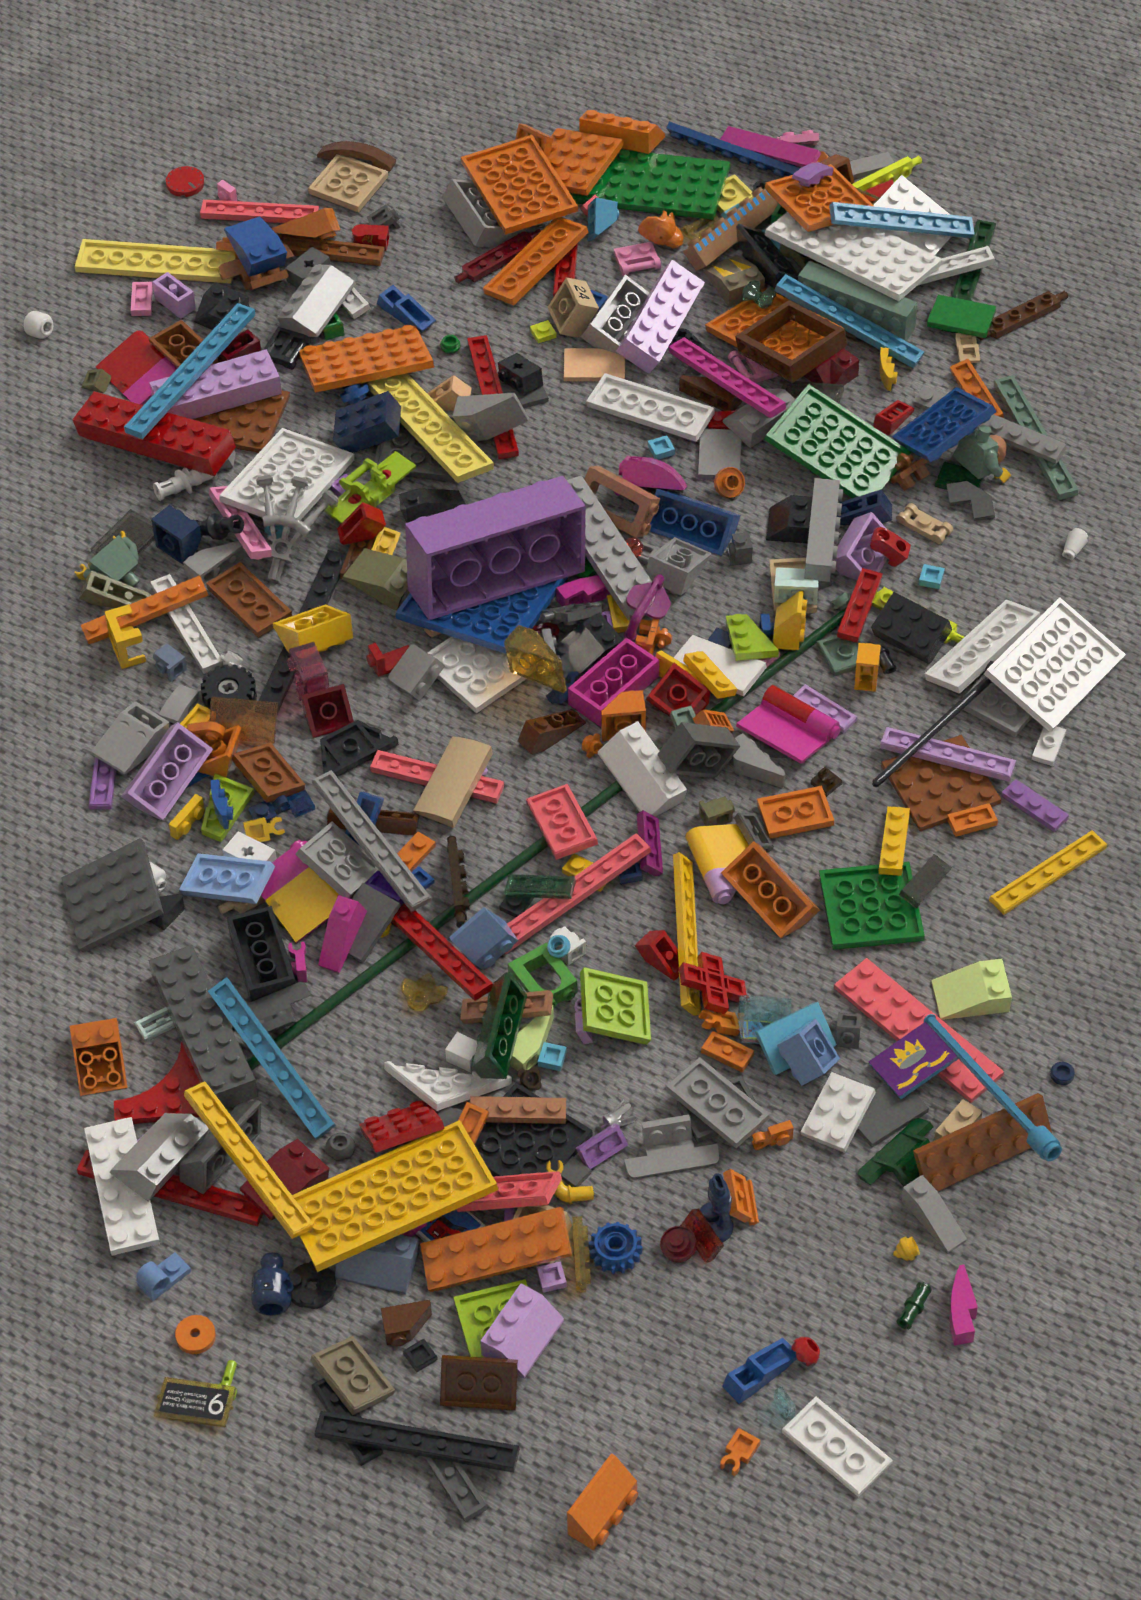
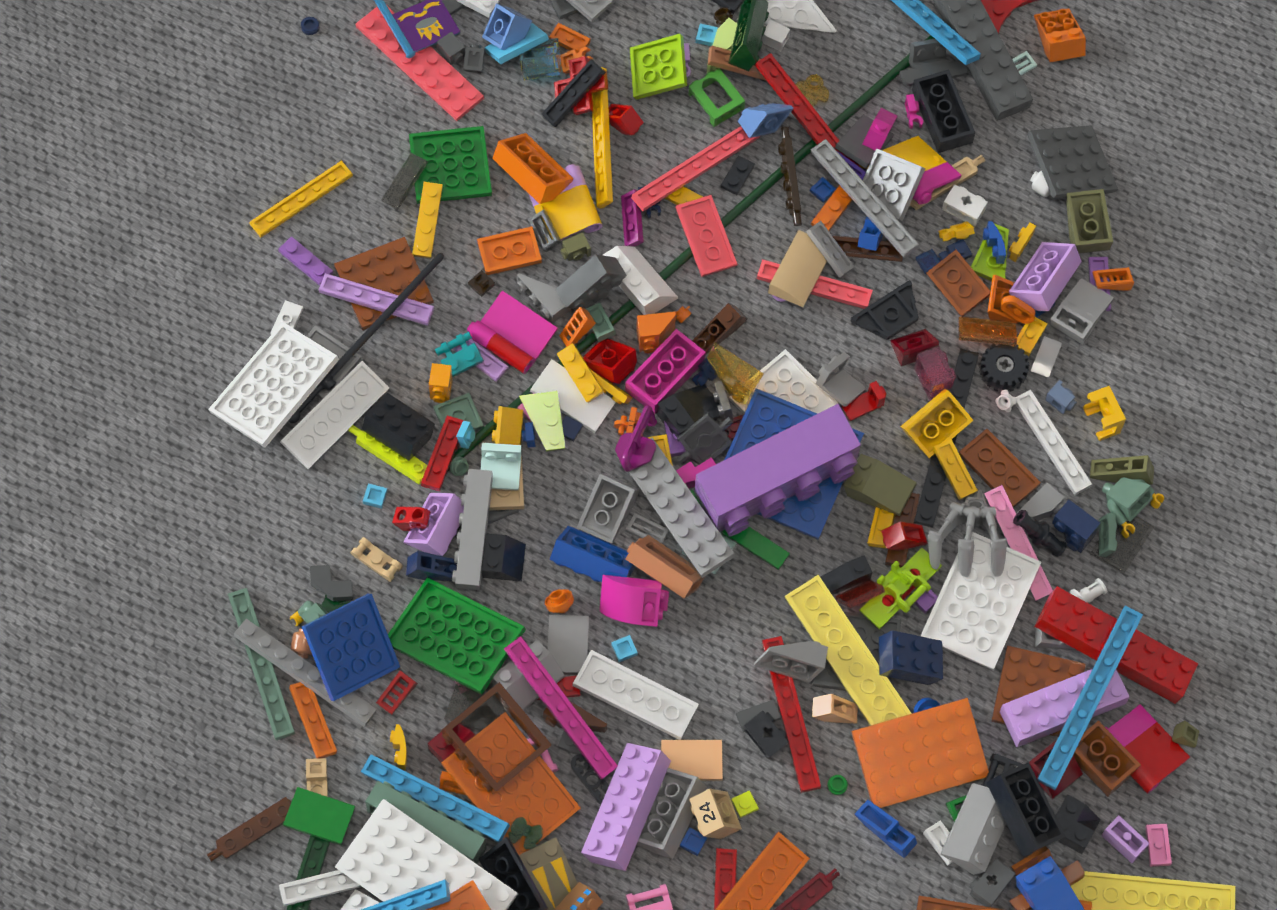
camera: 175 degrees right, 15 degrees up
(38, 324) = (1257, 804): white head -> none
(80, 769) = (1119, 273): none -> orange slope
(105, 823) = (1089, 221): none -> olive slope
(143, 530) = (1107, 535): none -> sand green plate
(149, 608) = (1091, 451): orange plate -> none
(172, 907) = (1025, 158): black slope -> none
(227, 878) = (980, 174): light blue plate -> none
(269, 293) = (1025, 809): none -> black brick
(298, 588) = (955, 469): none -> yellow plate
(413, 475) = (860, 594): none -> clear red tile
(416, 804) = (830, 249): none -> light grey tile
(540, 886) = (722, 168): clear green tile -> none
(558, 940) = (705, 110): medium azure plate -> none
(577, 949) = (698, 126): white brick -> none
(635, 545) = (650, 520): clear red plate -> none
(722, 969) = (573, 93): none -> black tile
(740, 549) = (550, 522): dark grey brick -> none
(834, 620) = (465, 434): none -> medium azure plate
(847, 702) = (463, 359): none -> teal plate
(878, 1035) = (451, 48): none -> dark grey brick
(886, 662) = (424, 405): black pin -> none
(903, 477) = (390, 612): dark orange hips -> none
(972, 820) = (359, 243): orange plate -> none
(973, 990) = (374, 88): yellowish green slope -> none
(1075, 542) = (238, 534): white cone -> none

